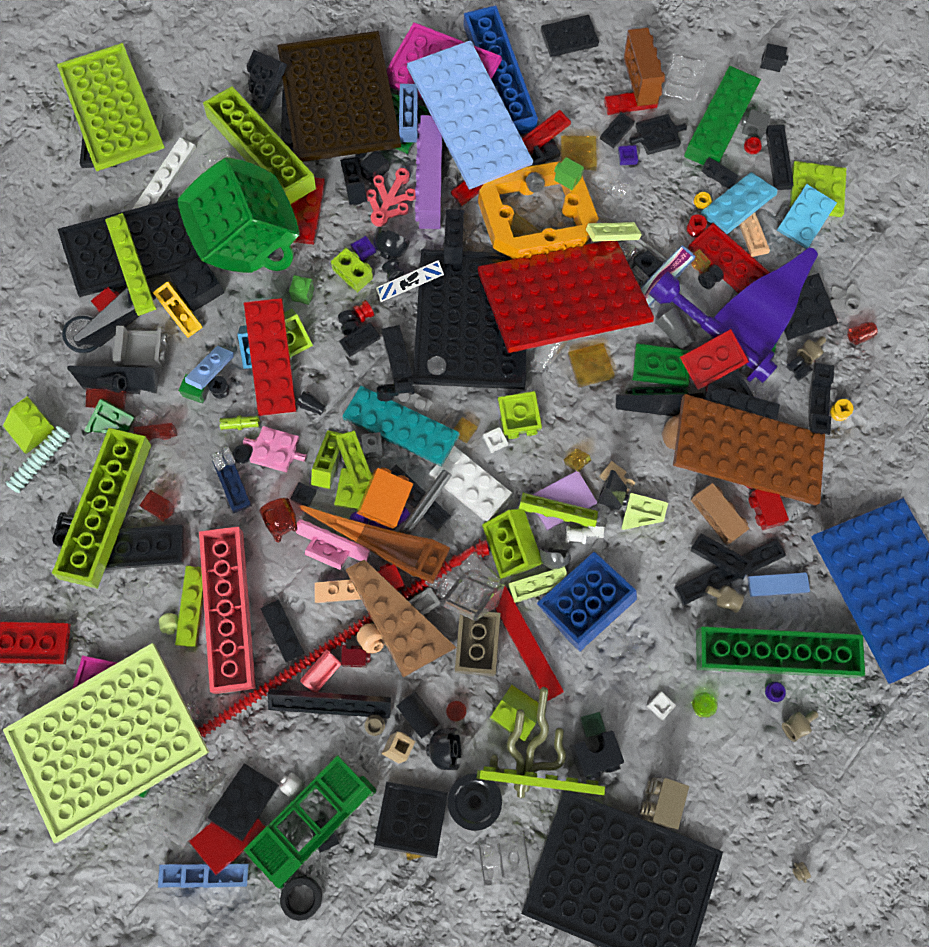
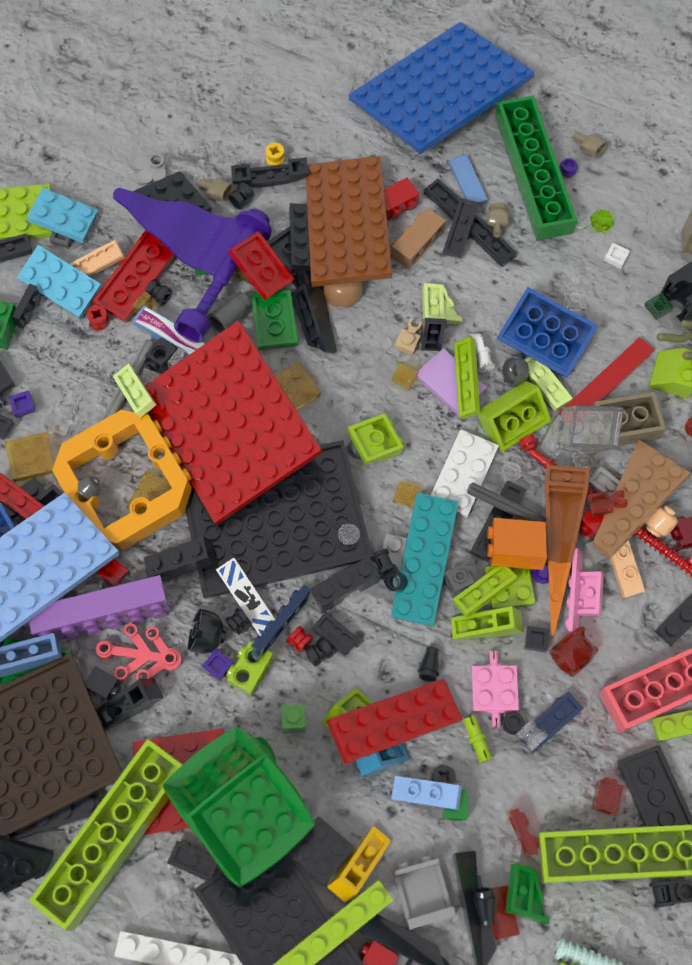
camera: 105 degrees left, 5 degrees down
(375, 290) = (275, 628): none -> dark blue plate
(399, 582) = (603, 503): none -> clear red plate
(495, 440) = (409, 459): white plate -> none
(568, 173) = (72, 450): bright green brick -> none
(704, 196) = (63, 313): yellow plate -> none
(862, 333) = (185, 148): clear red brick -> none

